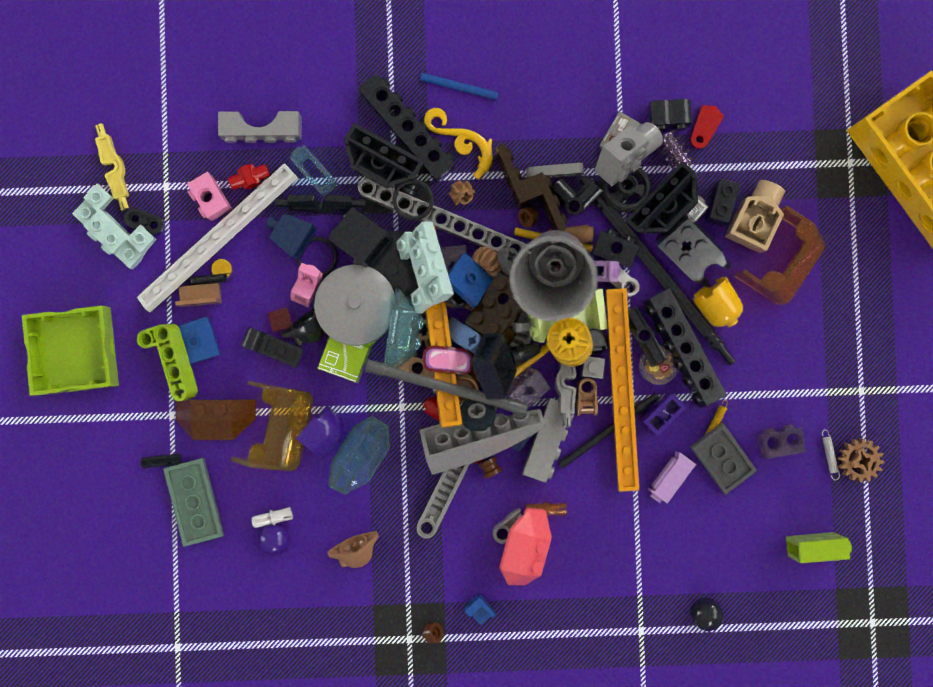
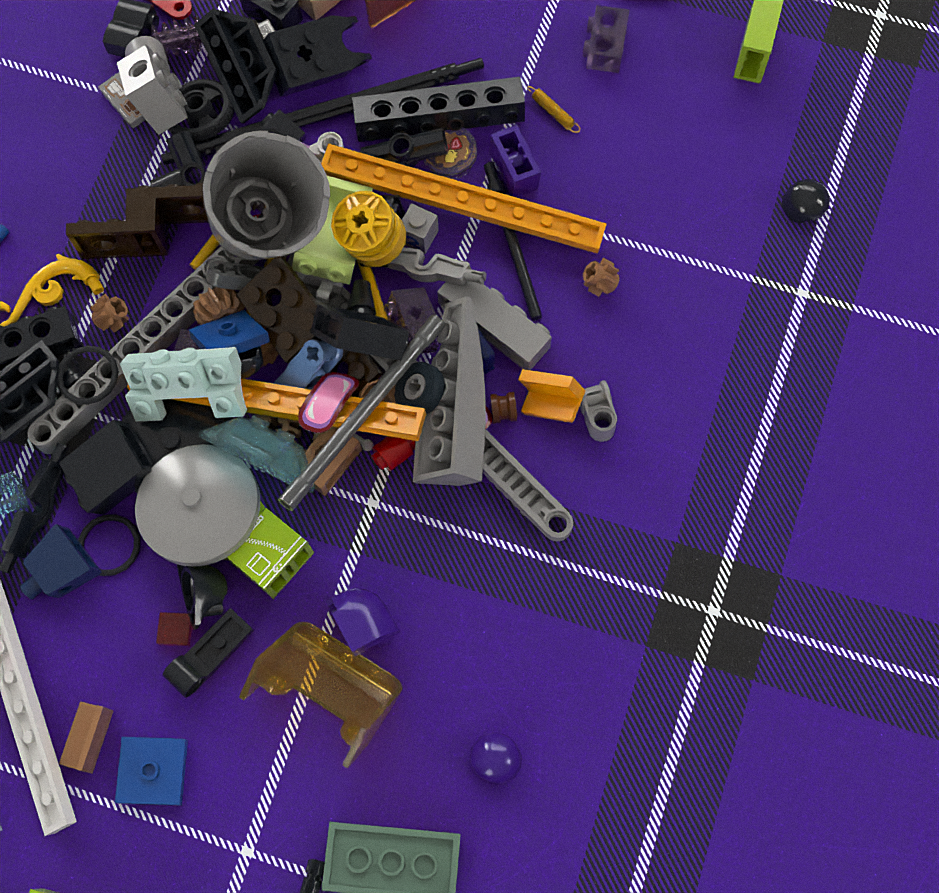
camera: 65 degrees left, 15 degrees down
(181, 384) = (166, 815): lime beam -> none
(209, 279) = (68, 713): black piece -> none
(215, 418) = (275, 781): reddish brown wedge -> none
(221, 266) = (63, 691): yellow piece -> none
(272, 517) = (461, 747): white axle -> none
(306, 285) = (138, 567): bright pink brick -> none
(355, 550) = (554, 637): medium nougat hat -> none
(359, 455) = (414, 578): clear light blue wedge -> none
(433, 633) = (714, 570): reddish brown tile -> none
(480, 609) = (701, 492): blue panel -> none
(505, 496) = (551, 395): none -> light orange panel
(526, 548) = (636, 391): coral wedge -> none
(528, 216) = (181, 241): reddish brown tile -> none
(551, 508) = (590, 355): clear orange pin -> none
(557, 171) = (141, 174): light grey beam -> none
(586, 398) = (458, 246): medium nougat piece -> none
(601, 498) = (601, 277): none -> medium nougat gear
(671, 477) = (605, 181): lavender window -> none
(719, 303) = (397, 47): yellow cylinder -> none
(723, 458) = (603, 113): dark grey tile -> none

